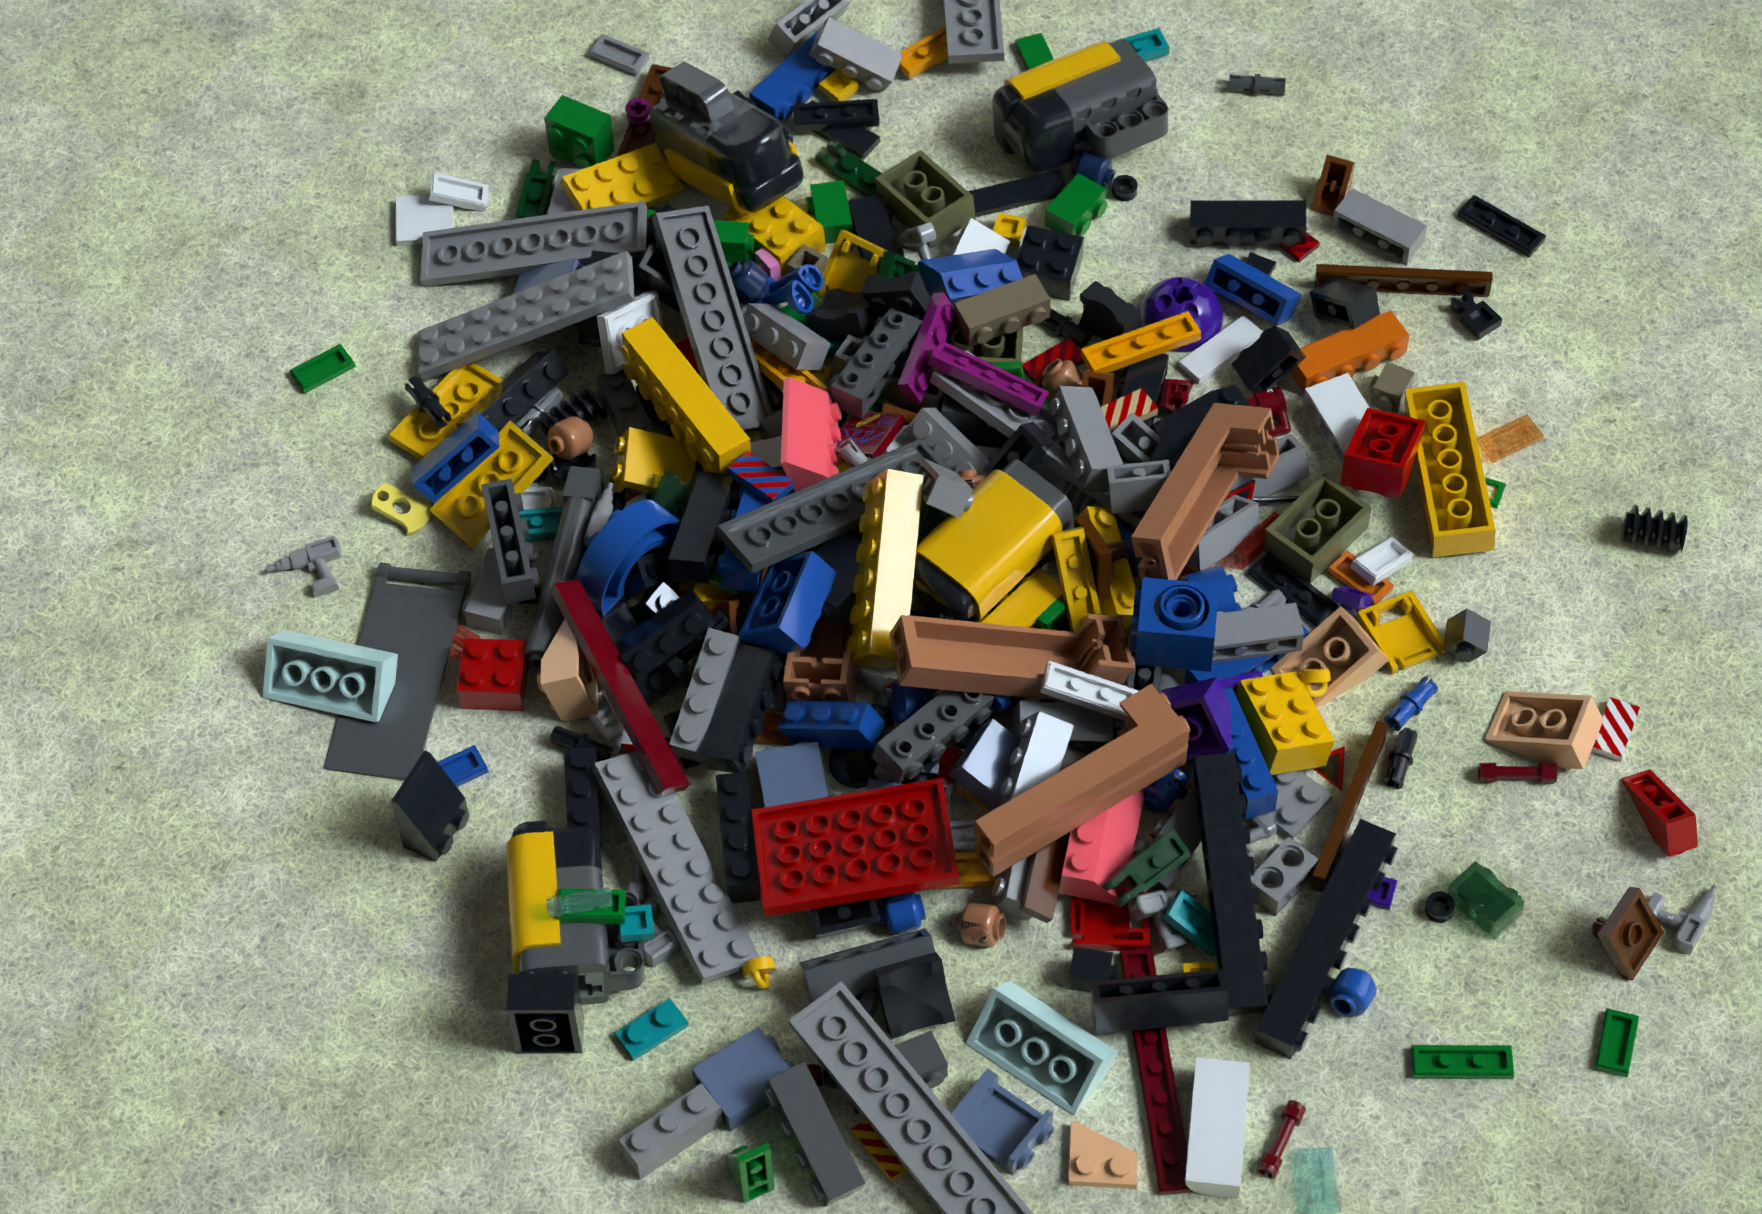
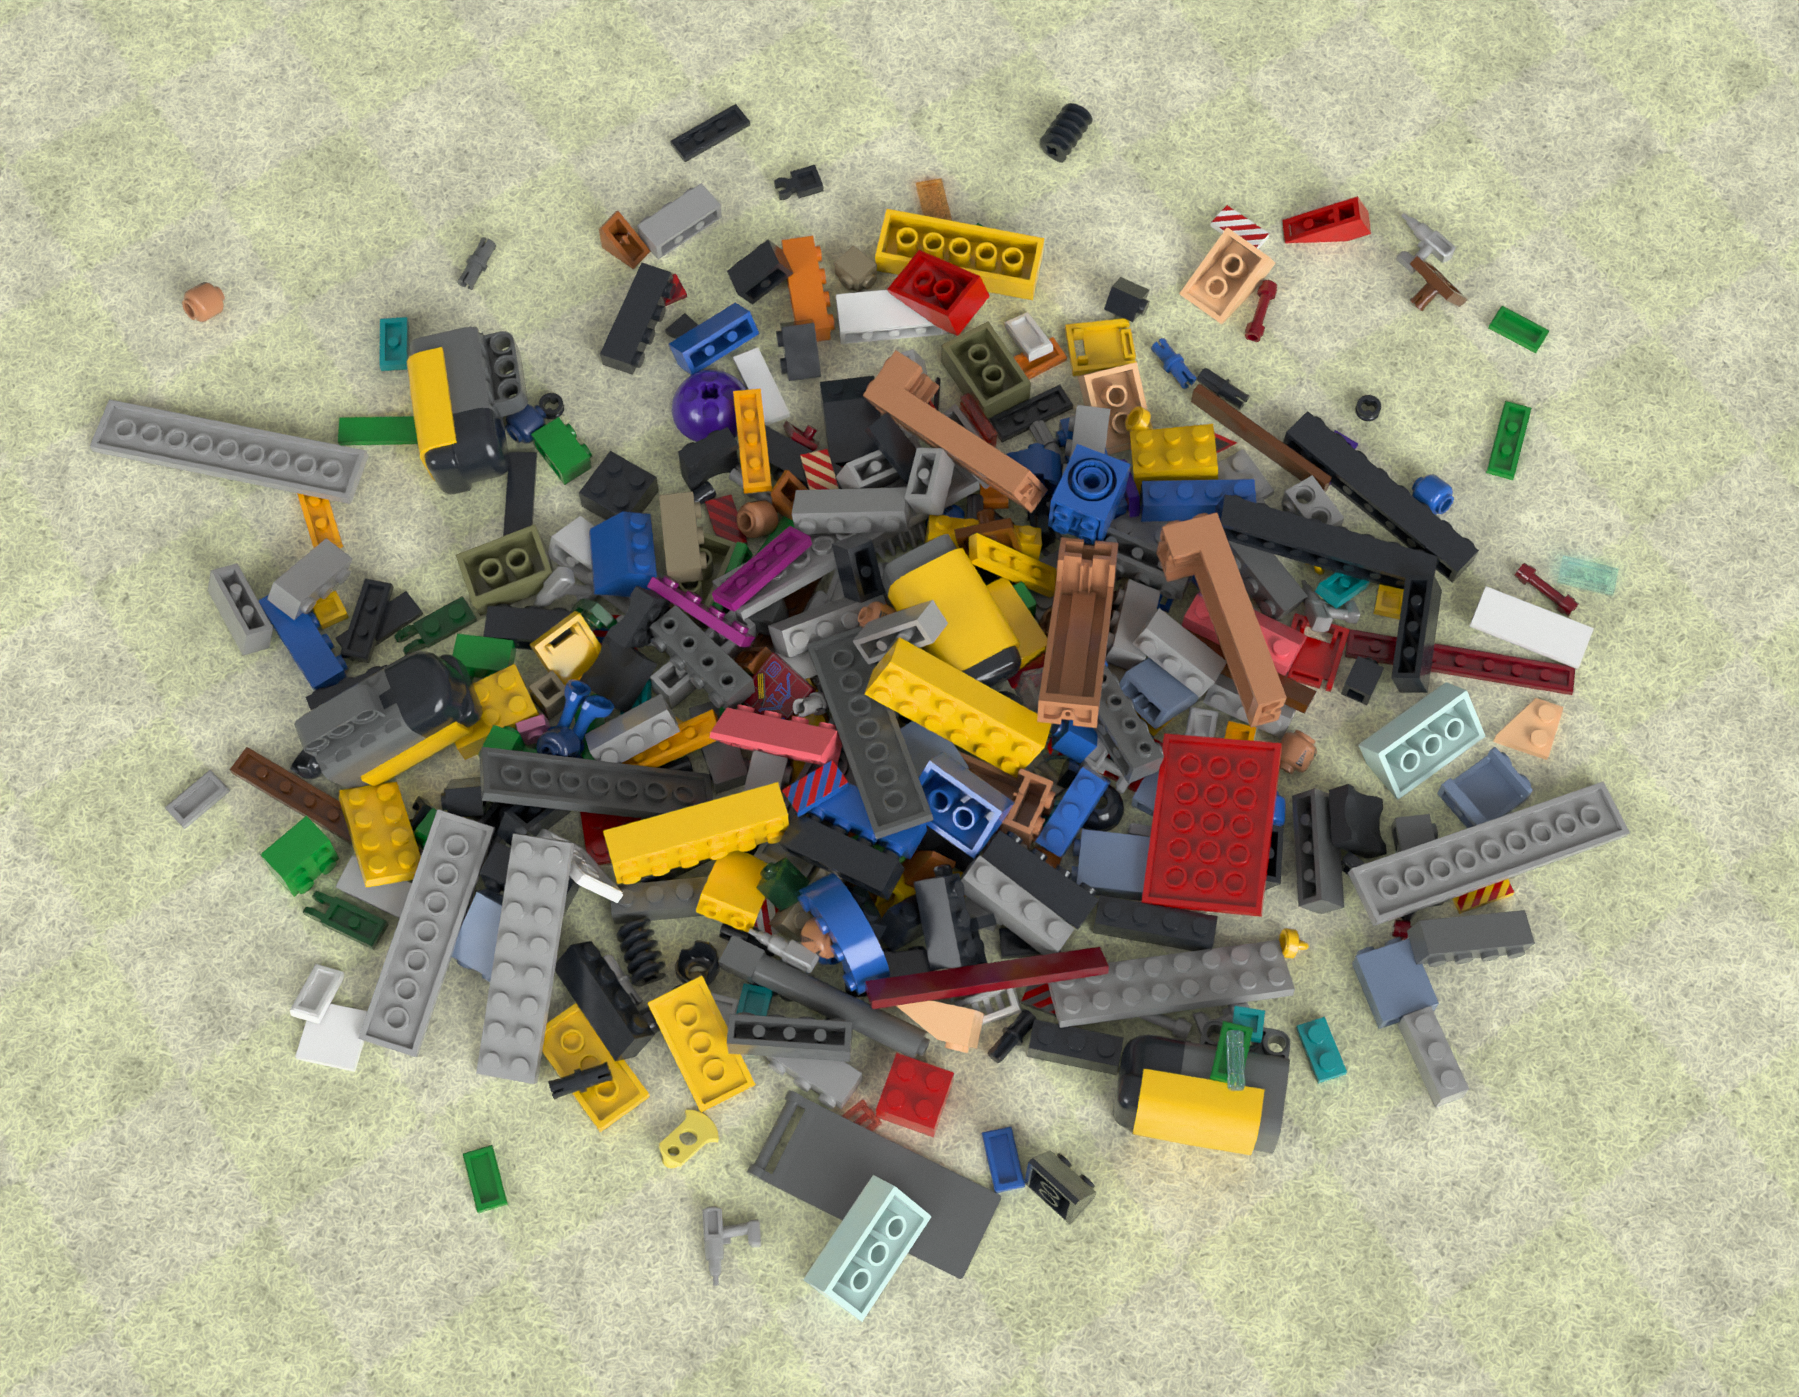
camera: 75 degrees left, 10 degrees up
(455, 457) = (666, 1066): blue brick -> none
(545, 1013) = (1307, 1127): black brick -> none
(570, 438) = (678, 955): nougat head -> none
(638, 104) = (296, 802): magenta bush -> none
(751, 1170) = (1492, 996): green slope -> none
(1010, 227) = (561, 513): yellow plate -> none
(1085, 689) = (1128, 586): white tile -> none
(1151, 866) = (1296, 601): dark green hinge -> none
(1207, 714) = (1161, 506): dark purple slope -> none
(1273, 399) = (838, 365): dark red piece -> none
(1351, 598) = (1060, 370): dark purple plate -> none
(1409, 279) = (745, 223): reddish brown tile -> none
(1486, 899) = (1375, 371): clear green brick -> none

